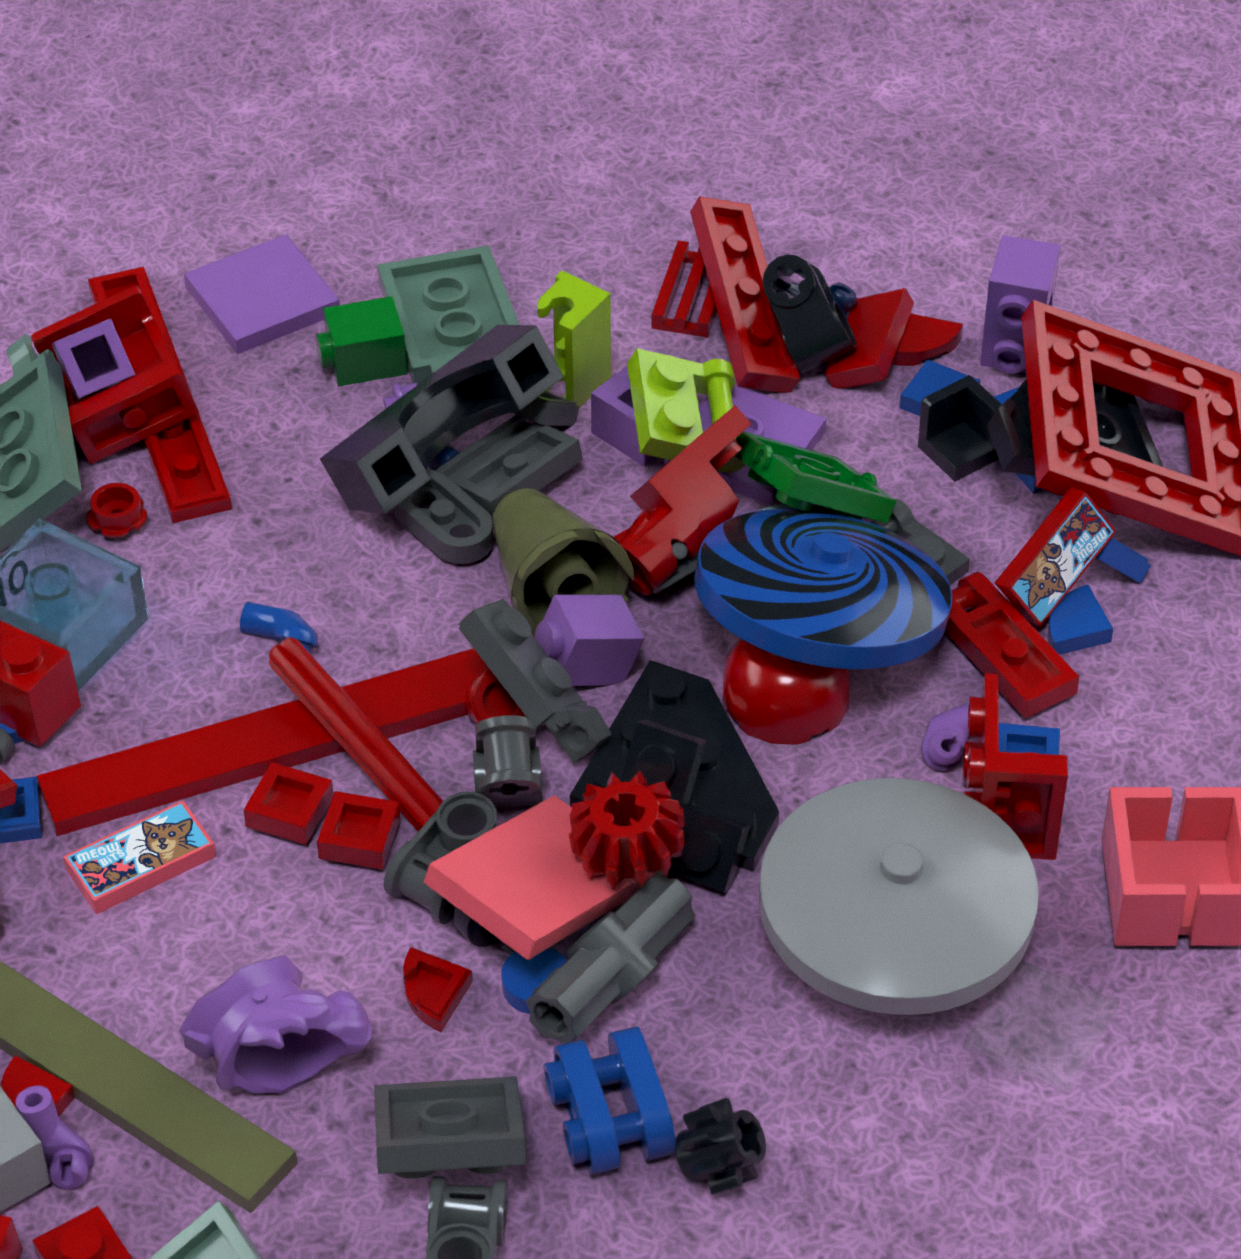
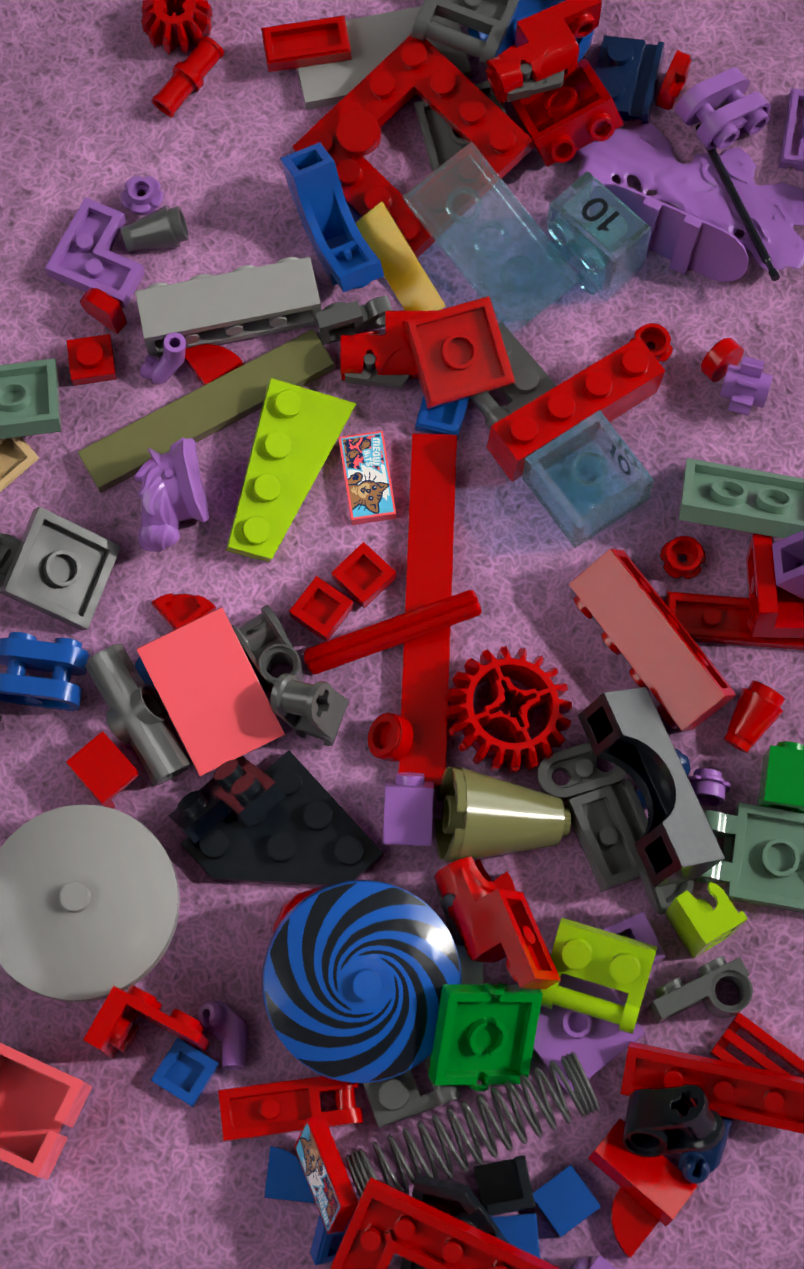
camera: 115 degrees right, 25 degrees up
(147, 948) = (286, 456): none -> lime wing
(244, 494) = (651, 640): none -> brick
(276, 624) = (520, 630): blue arm -> none
(297, 394) = (753, 715): none -> red cone
(403, 592) = (497, 674): none -> red gear
(534, 679) = (381, 752): dark grey hinge -> none
(626, 830) = (202, 761): red gear -> none
(639, 323) = (677, 997): none -> dark grey plate
(708, 966) = (102, 769): none -> red panel
(835, 382) = (582, 1097): none -> dark grey piece

